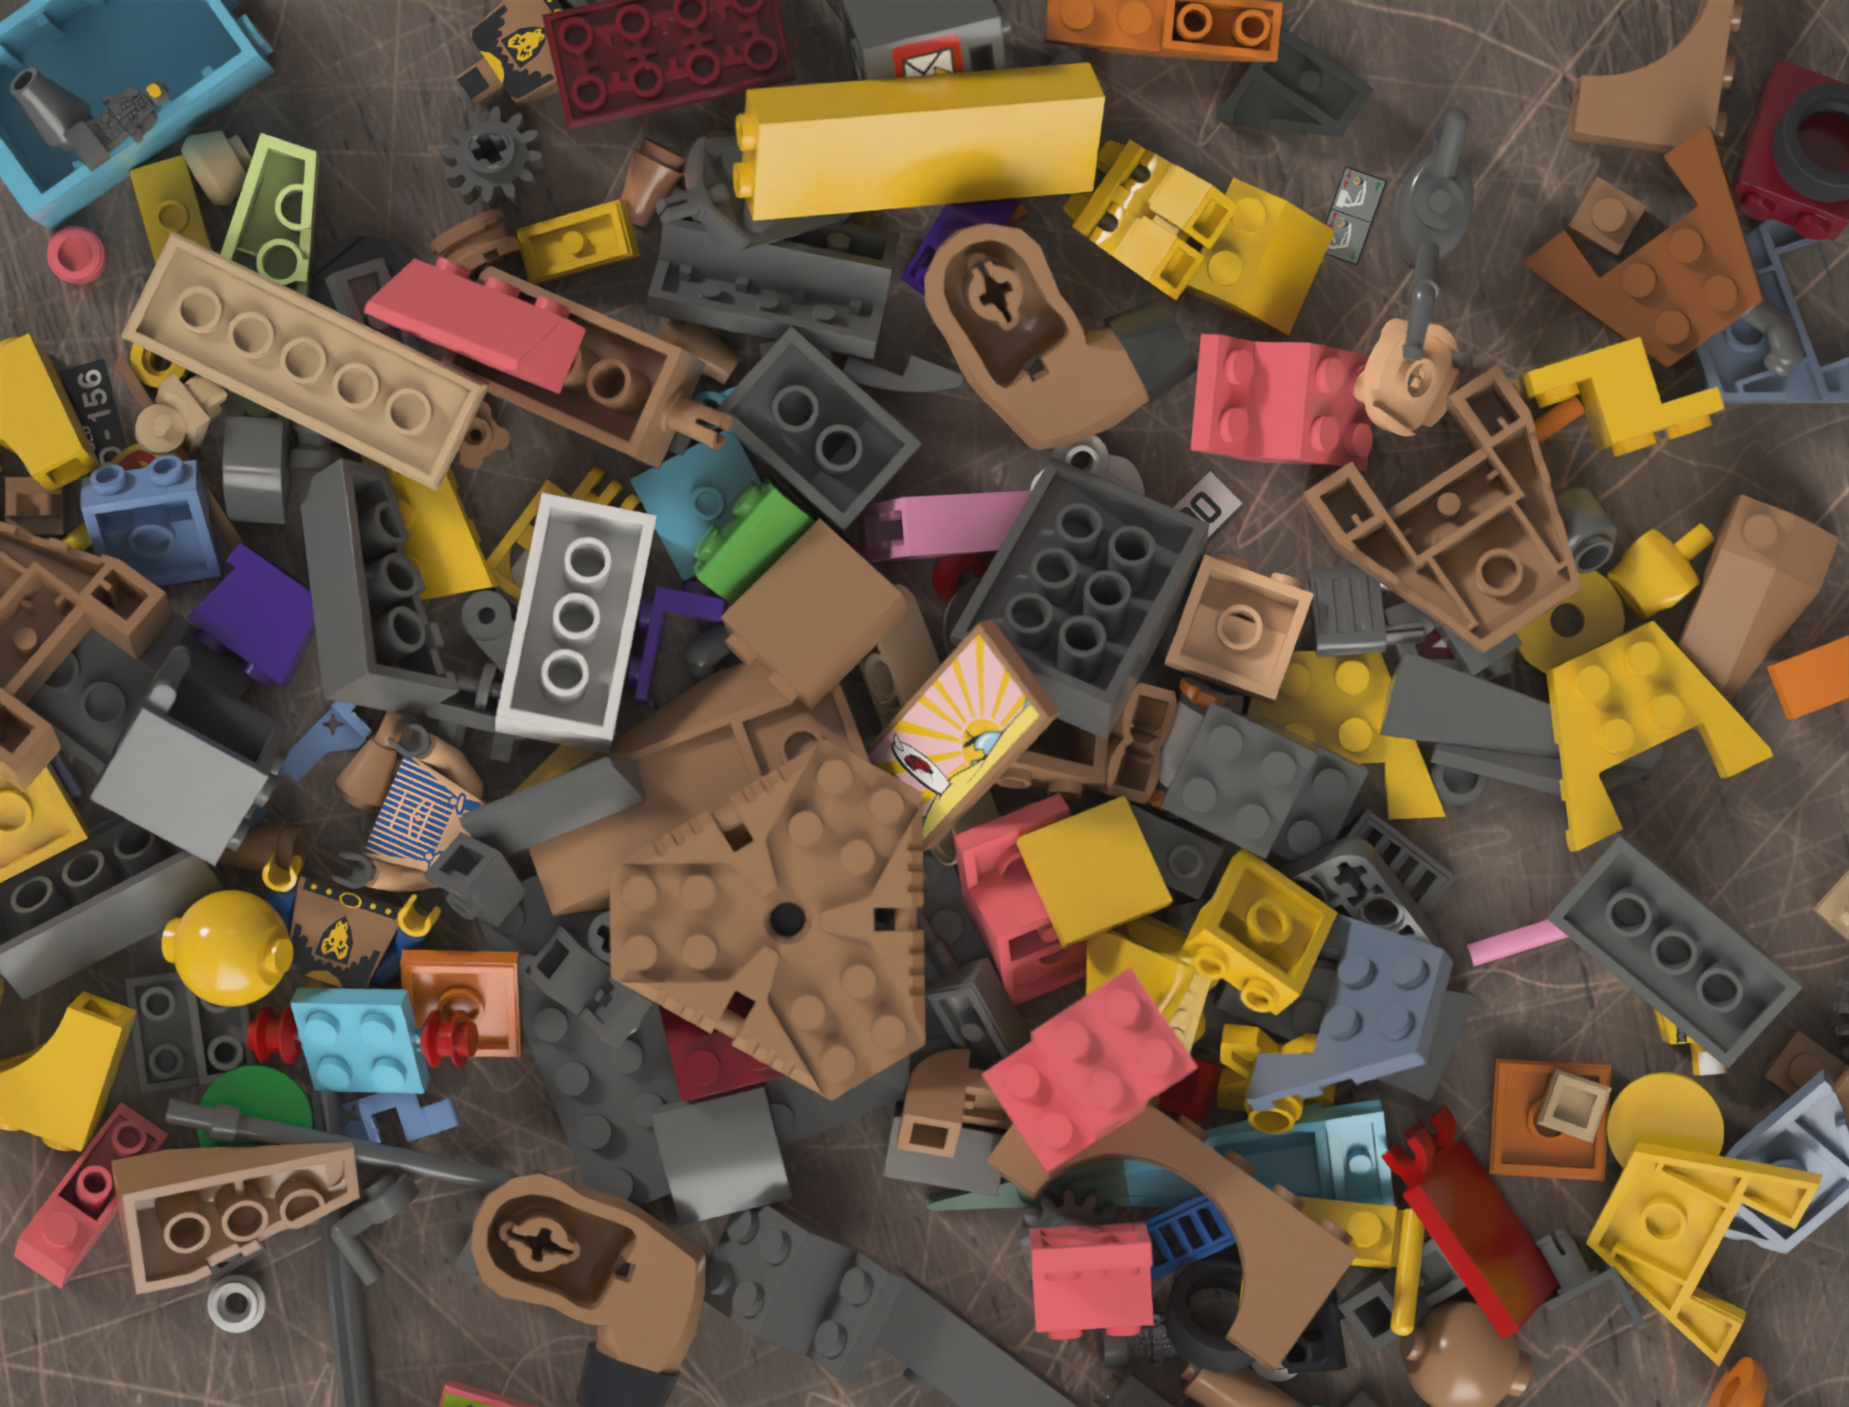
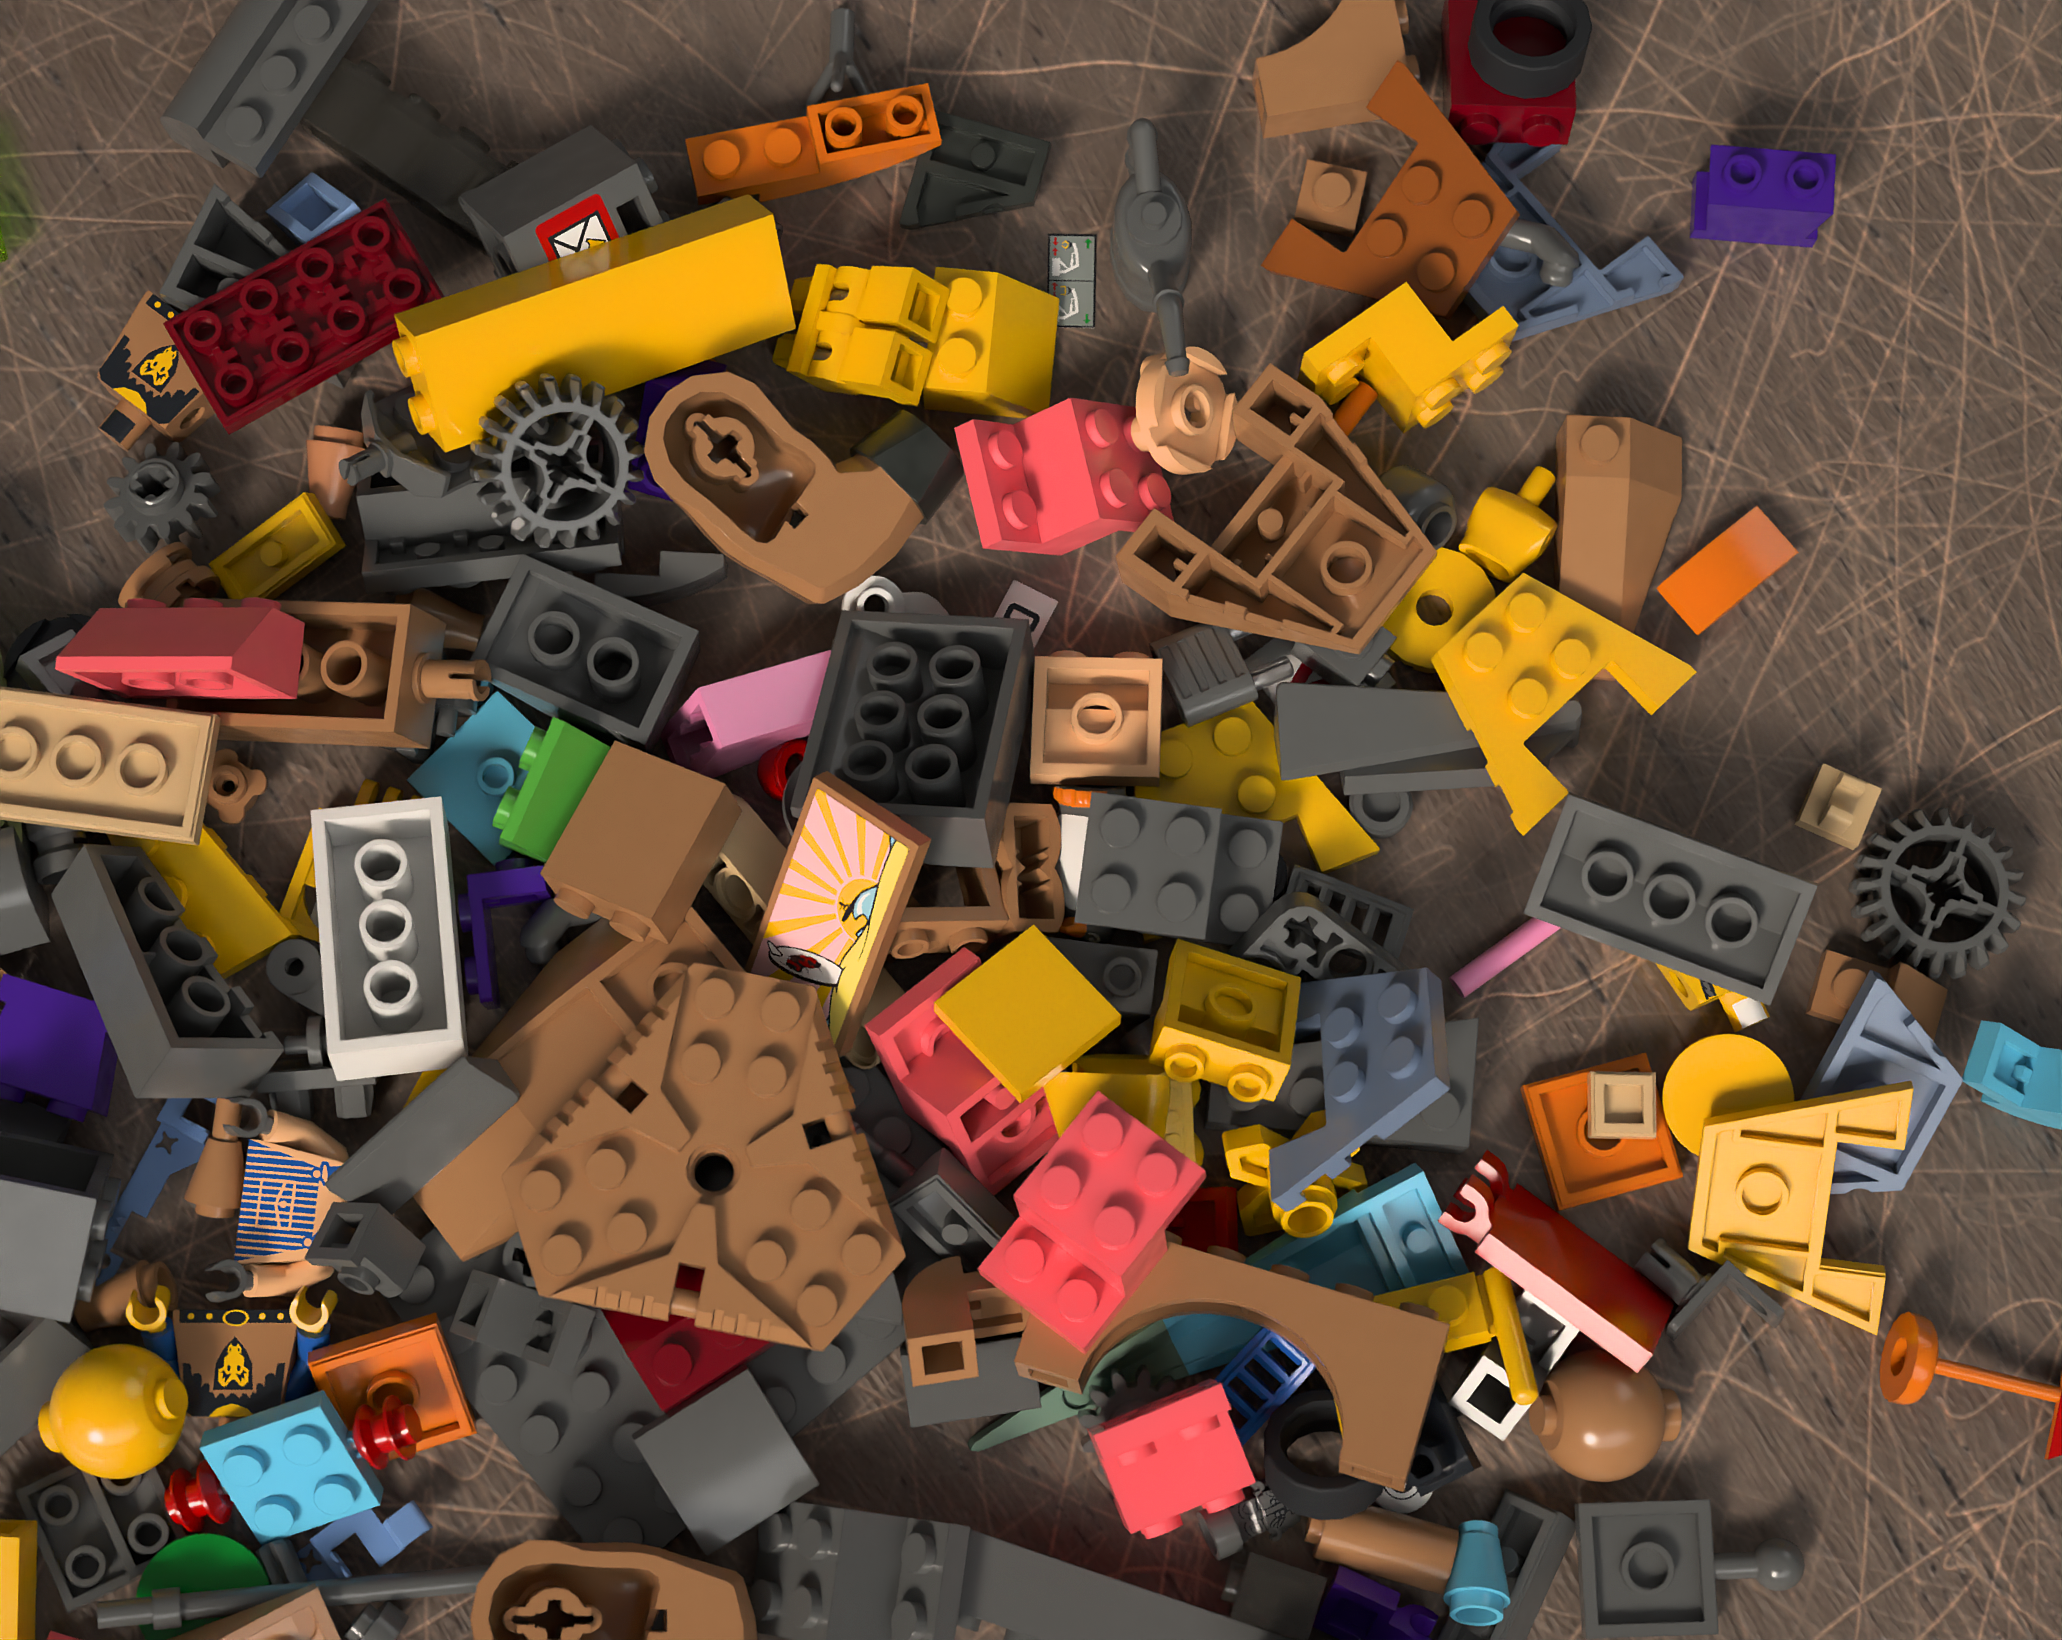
camera: 20 degrees left, 10 degrees down
(839, 288) = (549, 483): none -> dark grey gear

